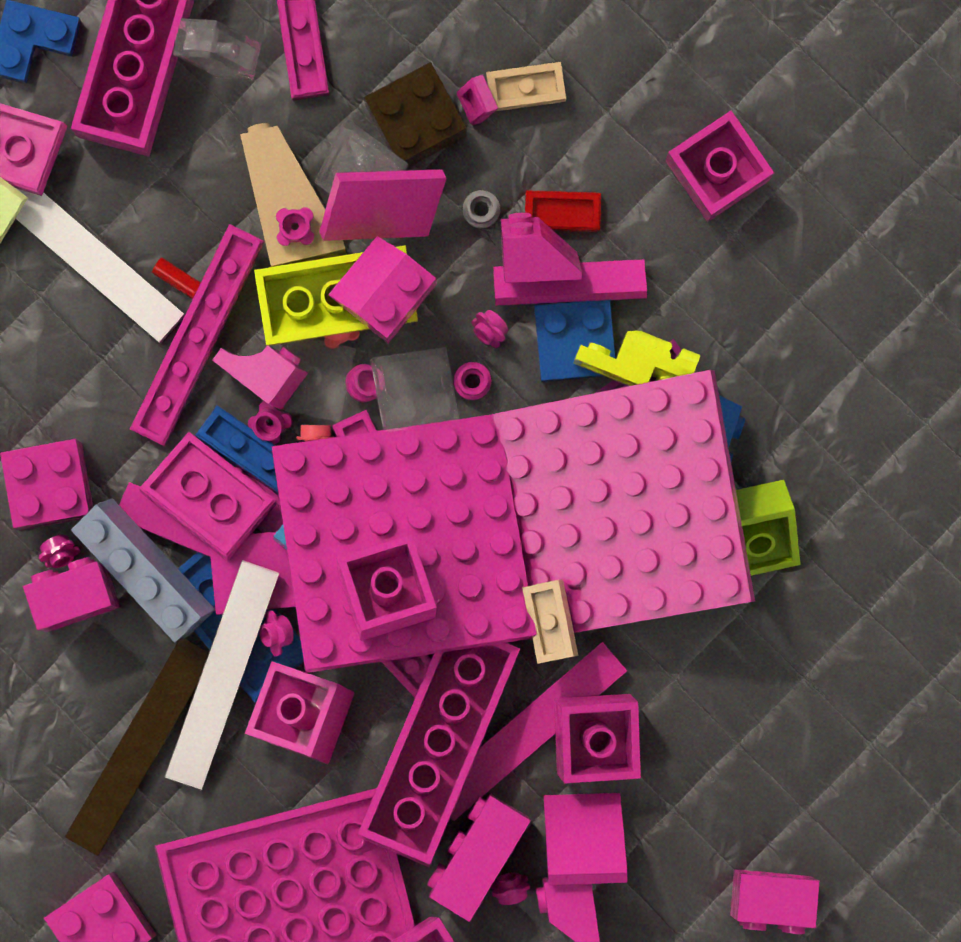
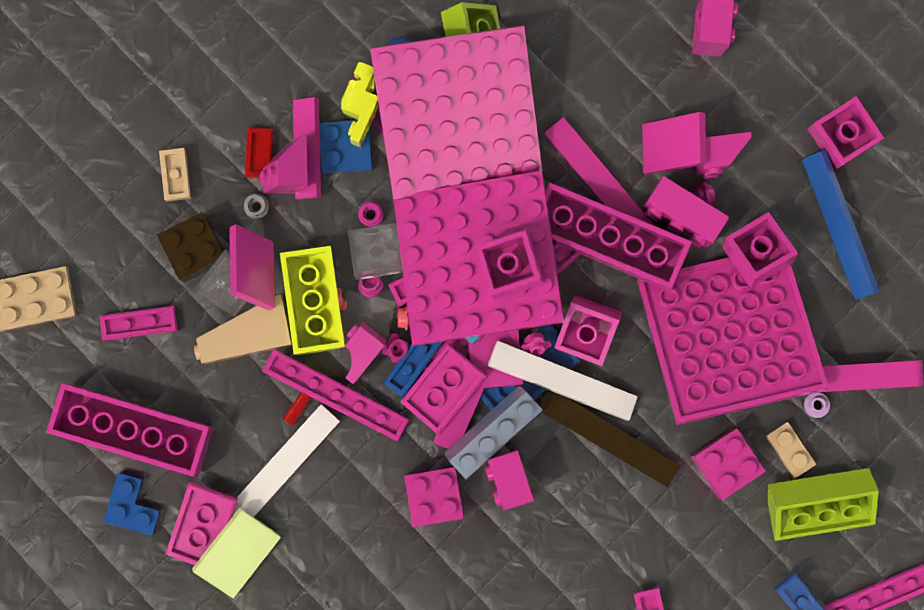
camera: 85 degrees left, 0 degrees up
(58, 551) = (478, 490): dark pink plate -> none
(217, 49) = (142, 378): clear brick -> none
(288, 217) = (270, 321): dark pink plate -> none
(383, 288) = (308, 266): dark pink slope -> none
(477, 100) = (183, 206): dark pink tile -> none
(489, 328) = (336, 201): dark pink plate -> none
(552, 619) = (527, 161): tan plate -> none
(597, 738) = (608, 135): dark pink brick -> none
(719, 166) = (232, 47): dark pink brick -> none

